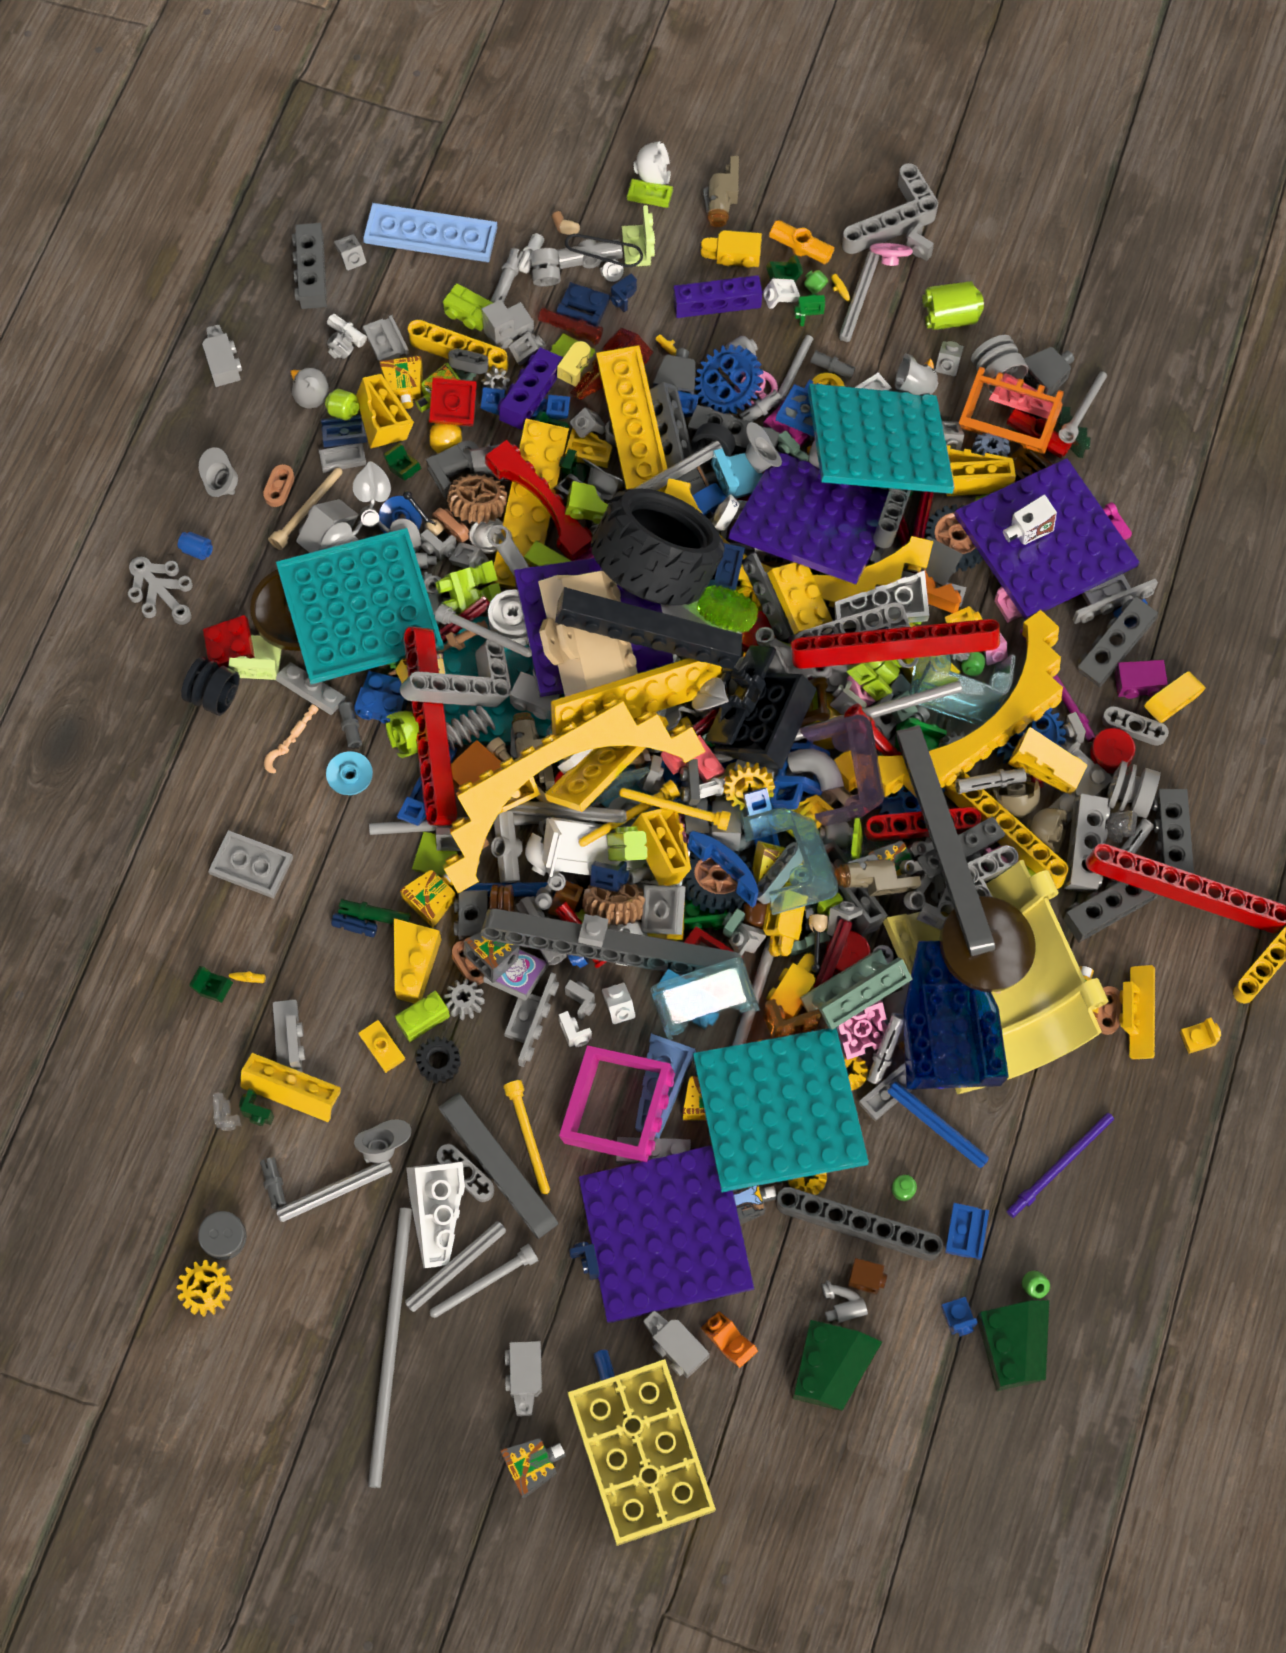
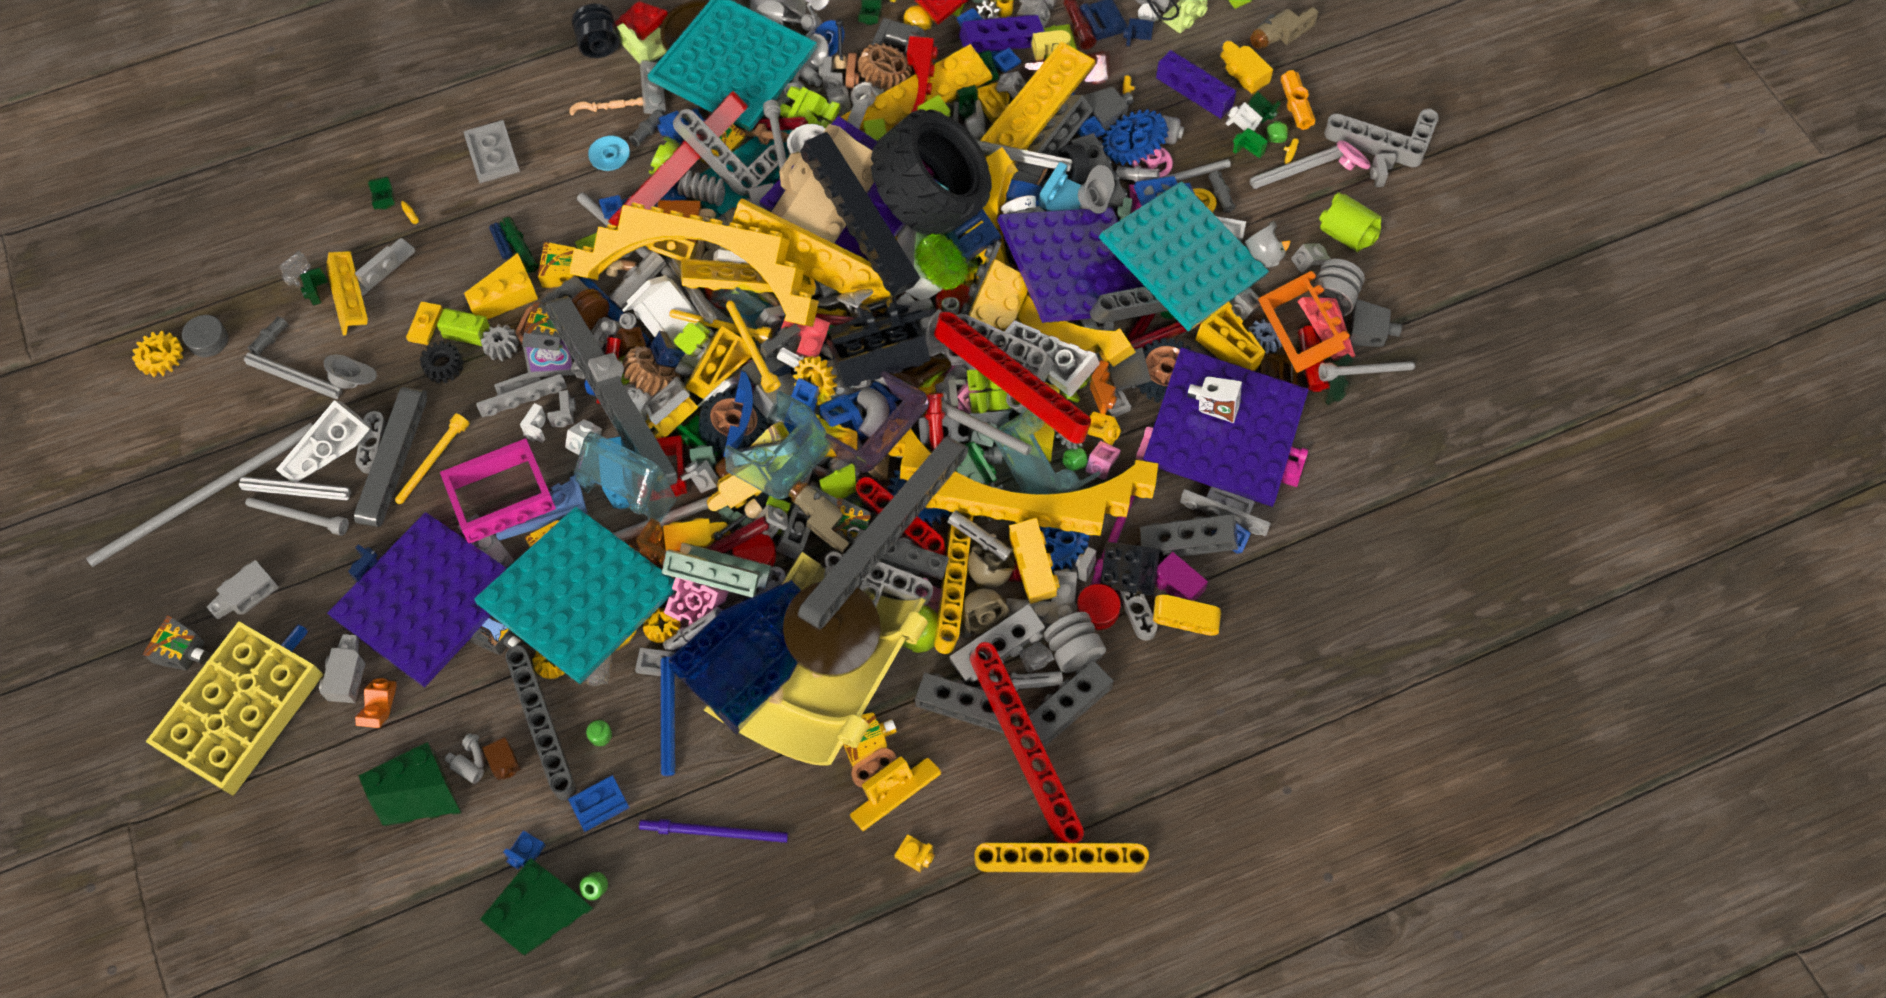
camera: 50 degrees right, 5 degrees down
(1106, 703) = (1130, 568): none -> black bracket

